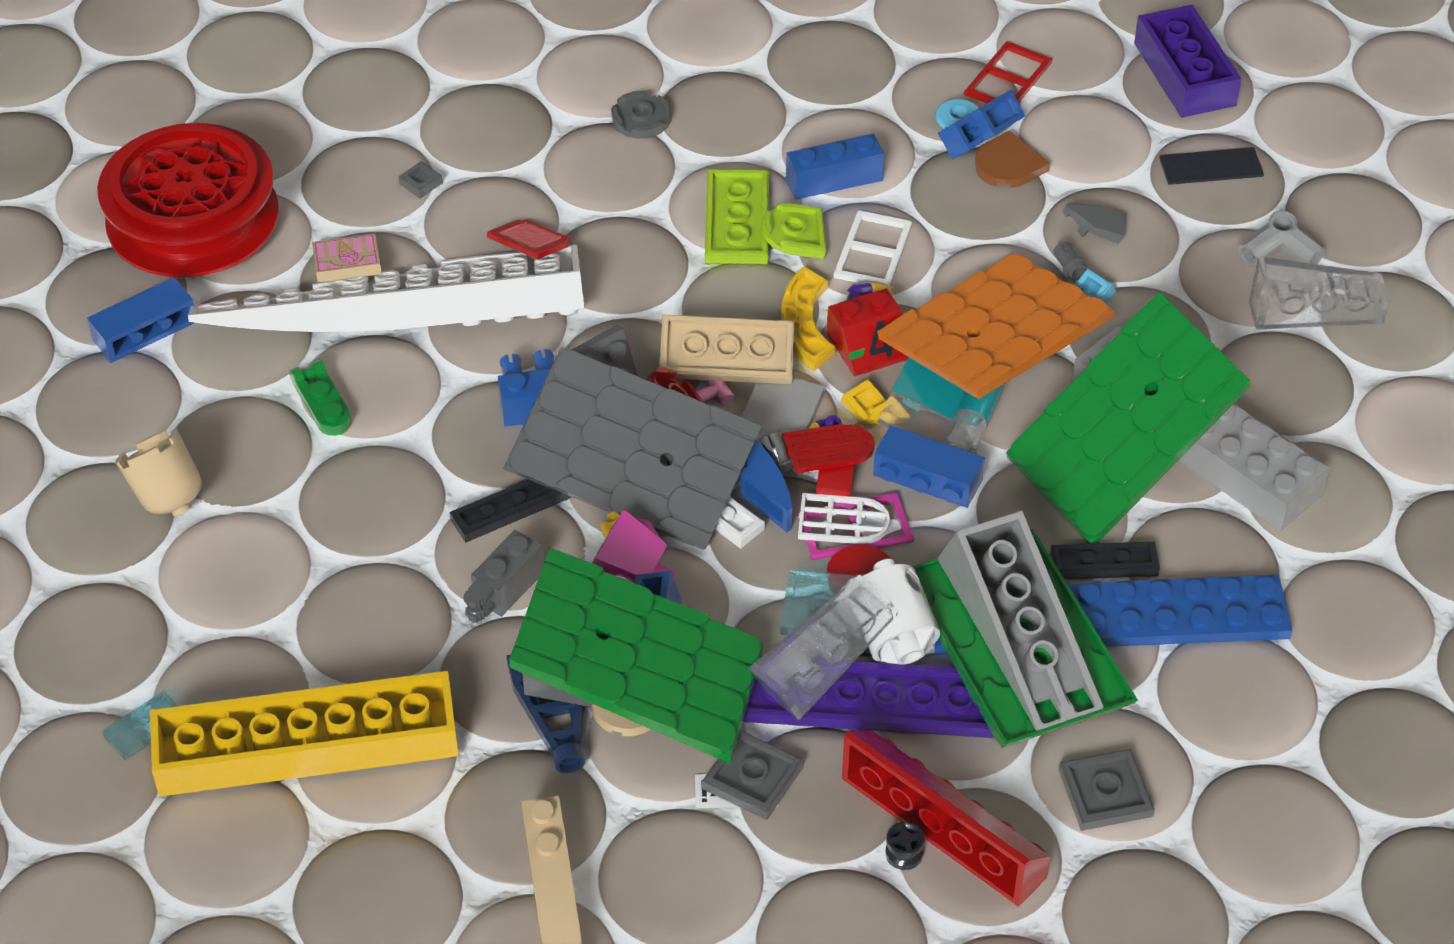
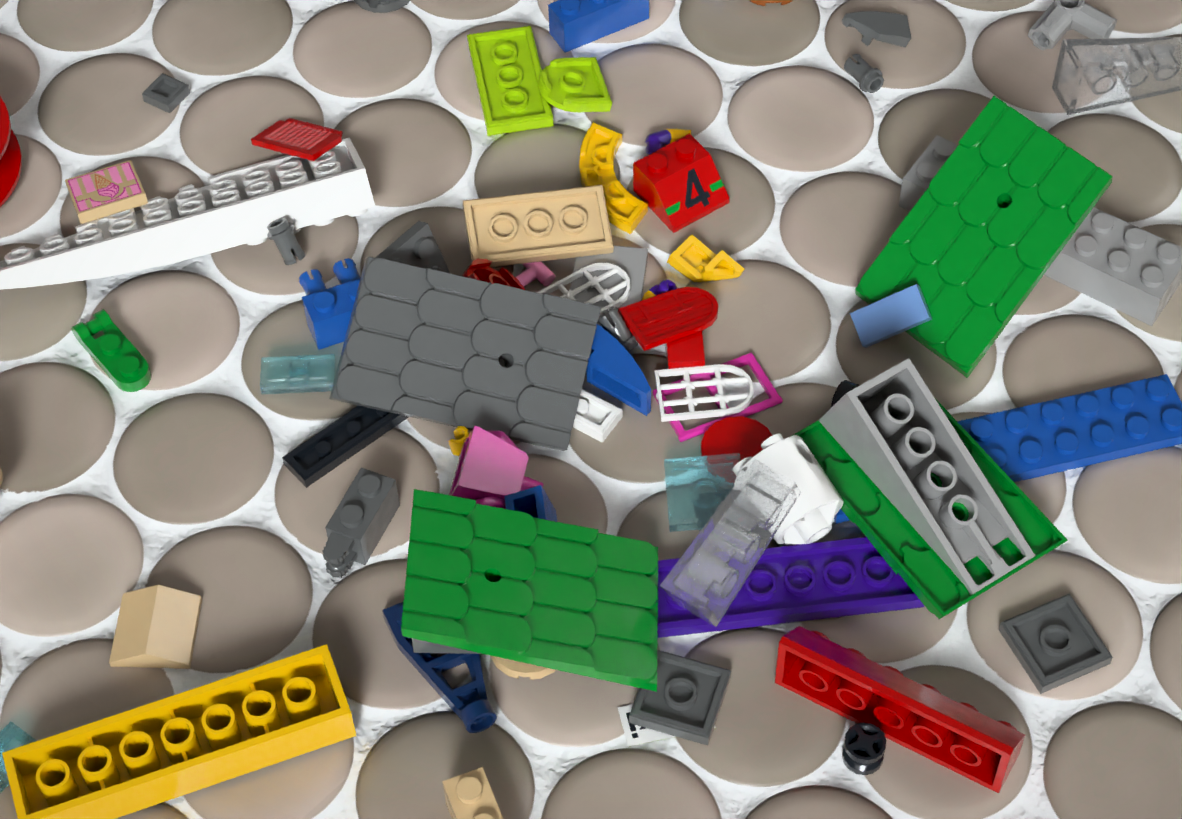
camera: 10 degrees left, 5 degrees up
(306, 637) = (156, 628): none -> tan slope
(479, 443) = (297, 374): none -> clear light blue plate
(495, 323) = (285, 240): none -> dark grey pin
(766, 406) = (594, 282): none -> white window
(870, 248) = (657, 92): white window -> none
(928, 466) = (779, 318): blue brick -> none
(937, 408) = (777, 242): door -> none
(996, 325) = (809, 155): orange piece -> none
(1031, 480) = (891, 316): none -> medium blue tile
(1095, 286) = (893, 100): medium azure slope -> none
(1106, 560) = (988, 388): black tile -> none

